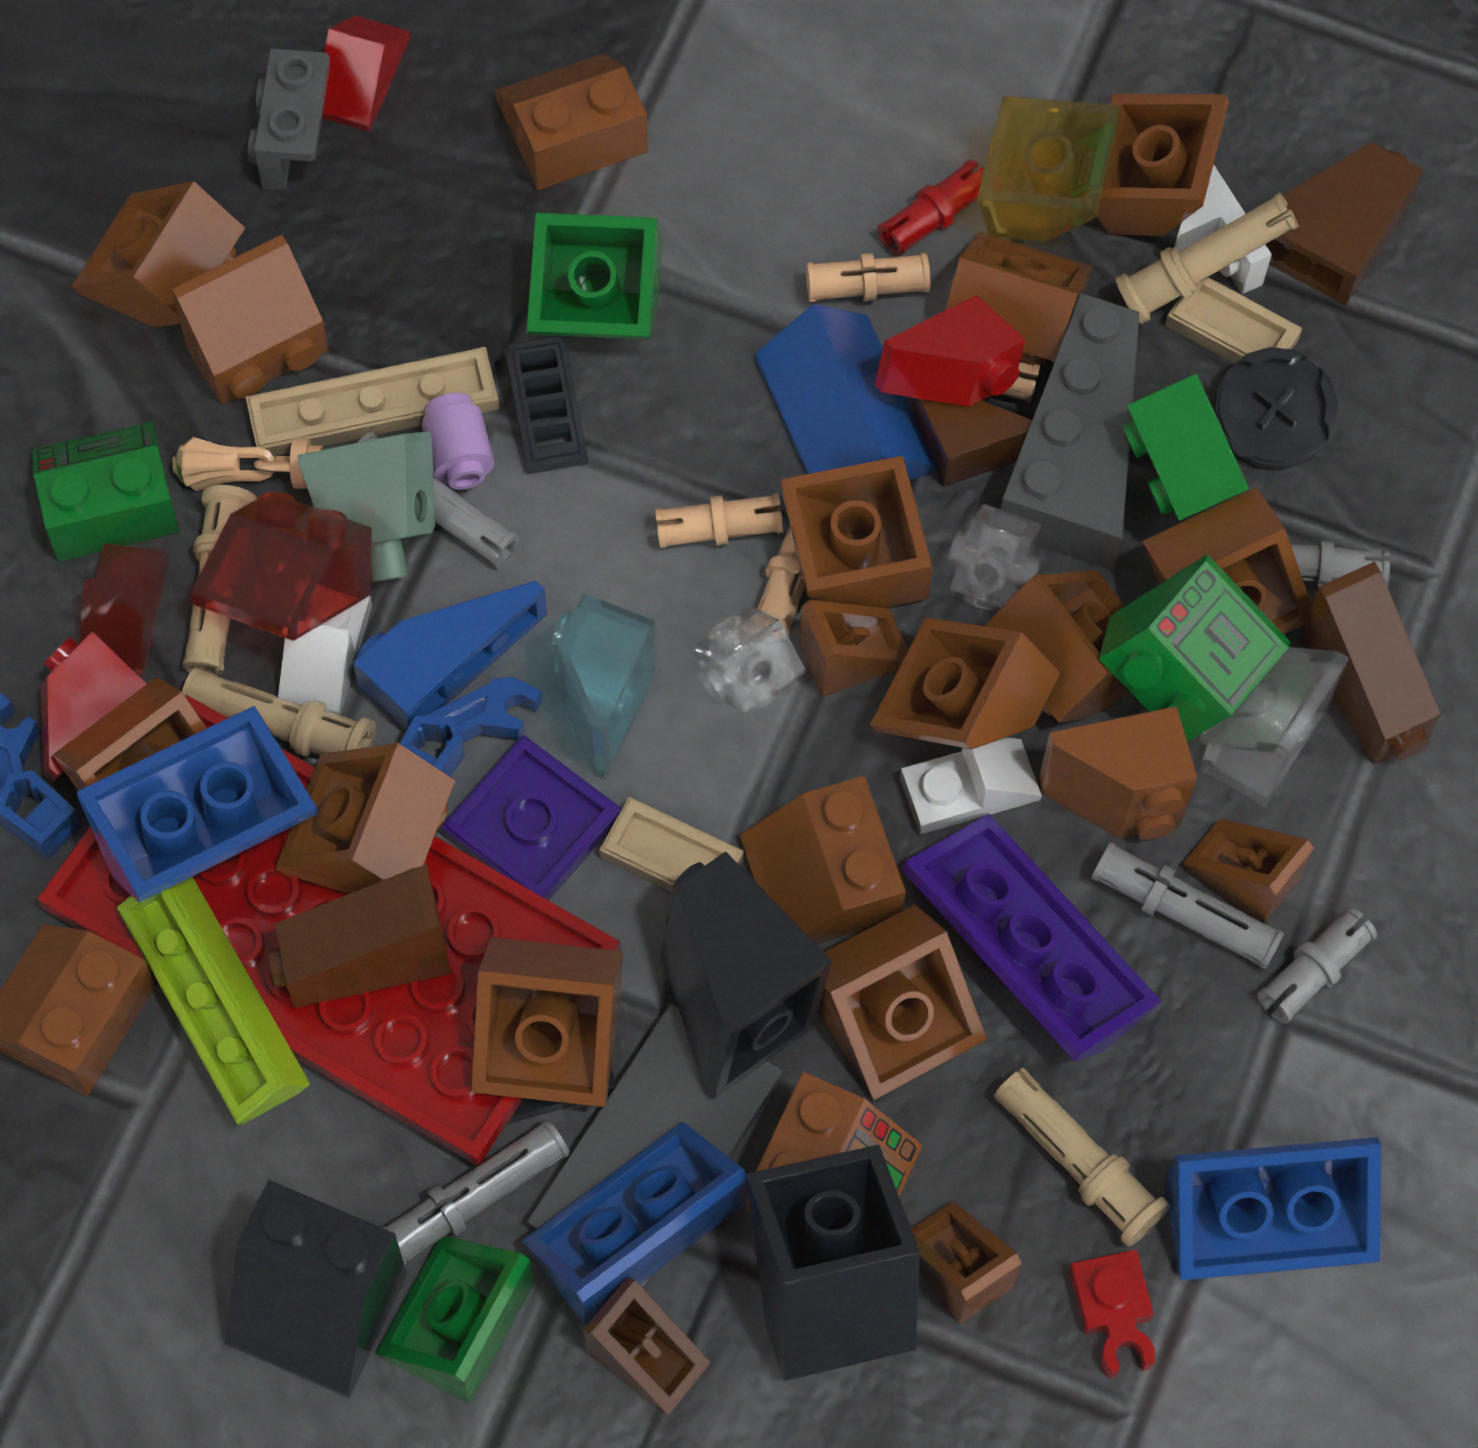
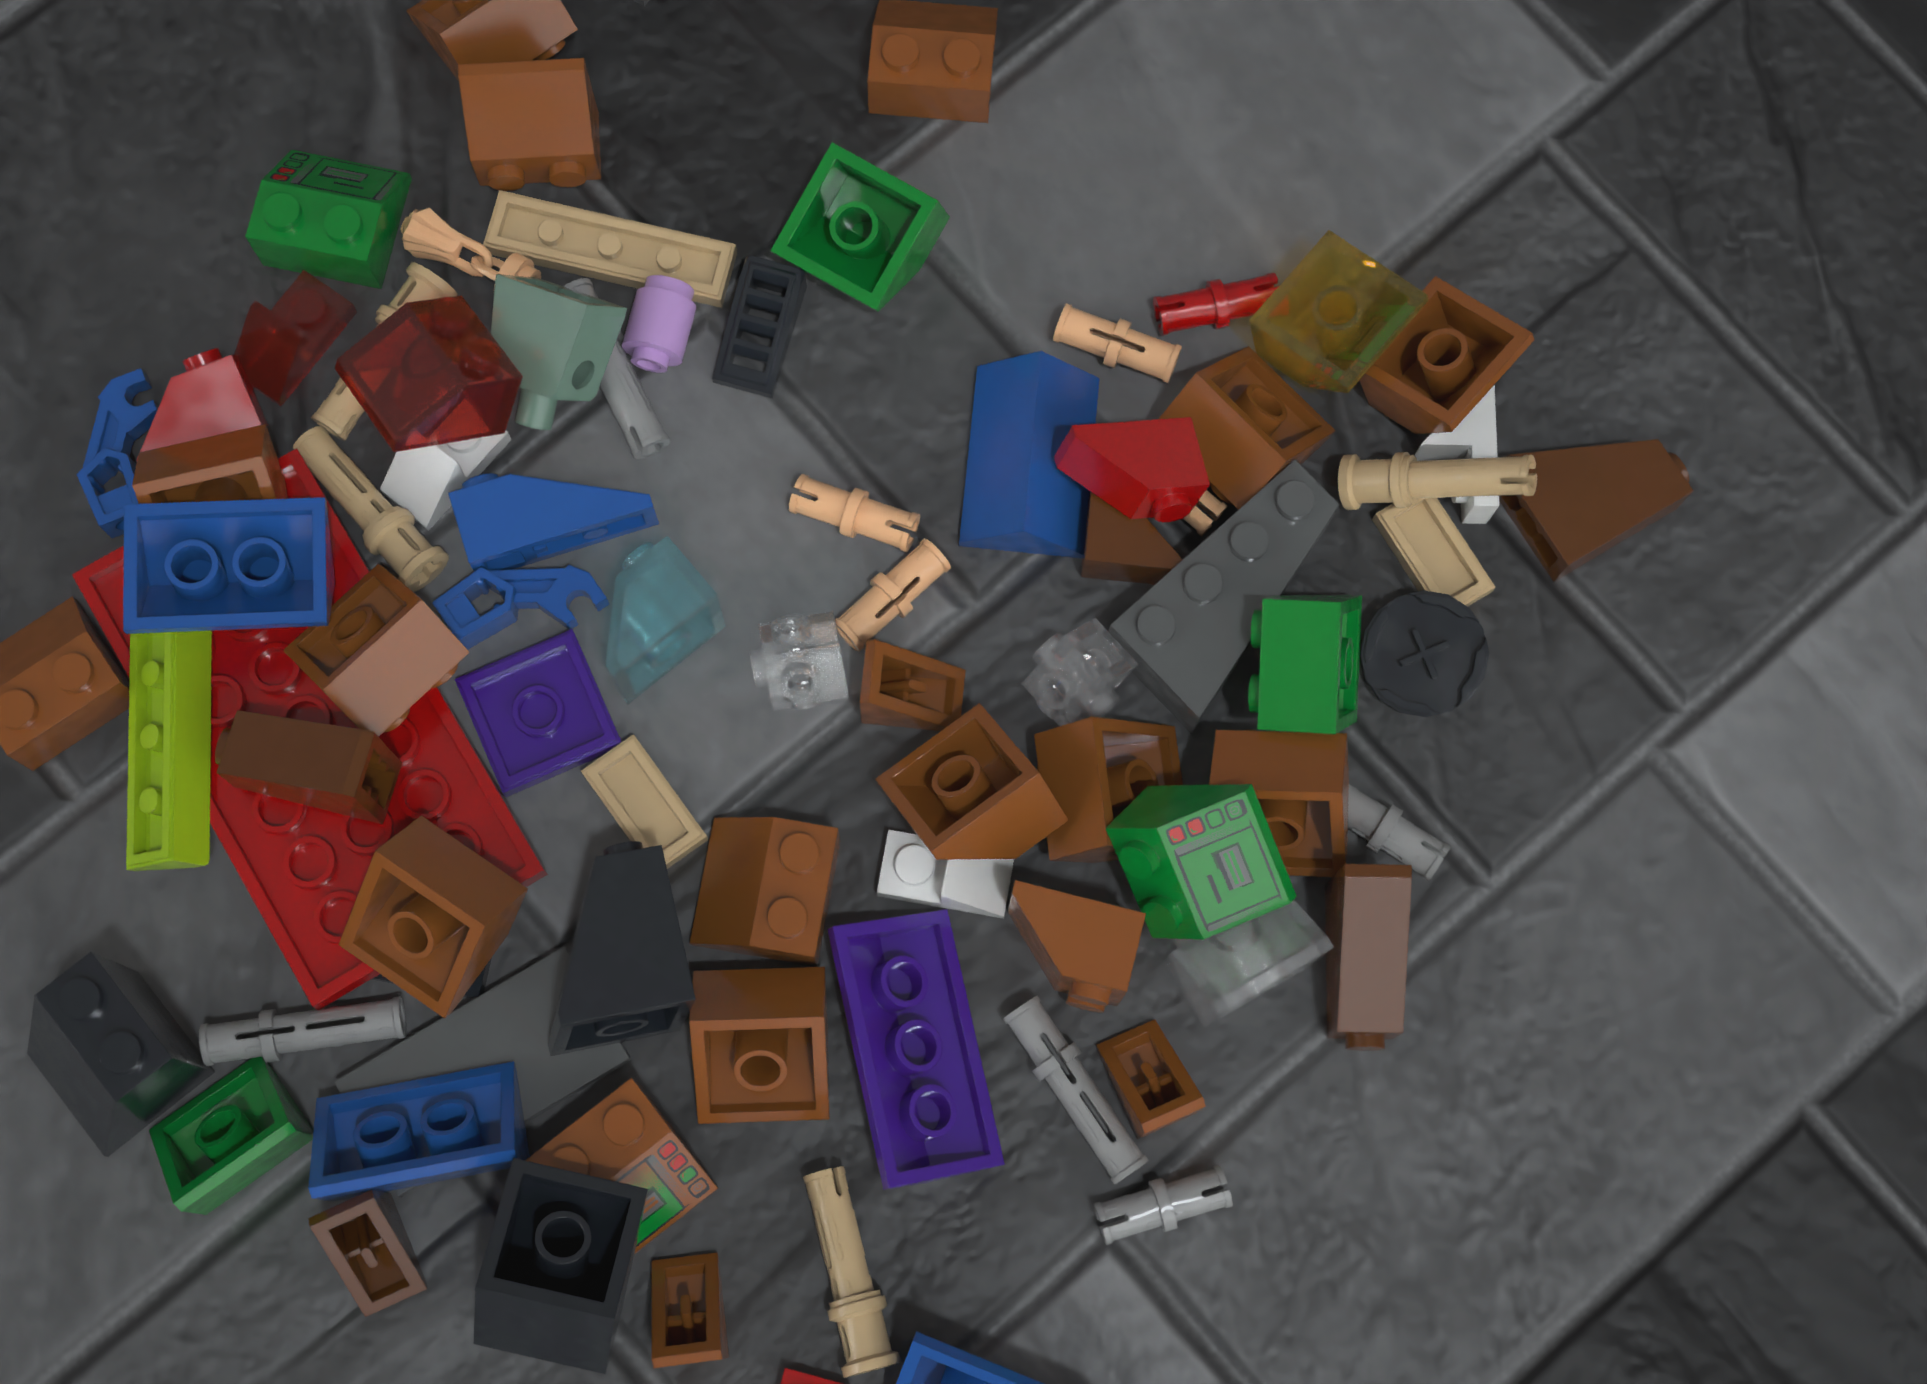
camera: 25 degrees right, 10 degrees up
(859, 534) = (960, 592): dark orange slope -> none

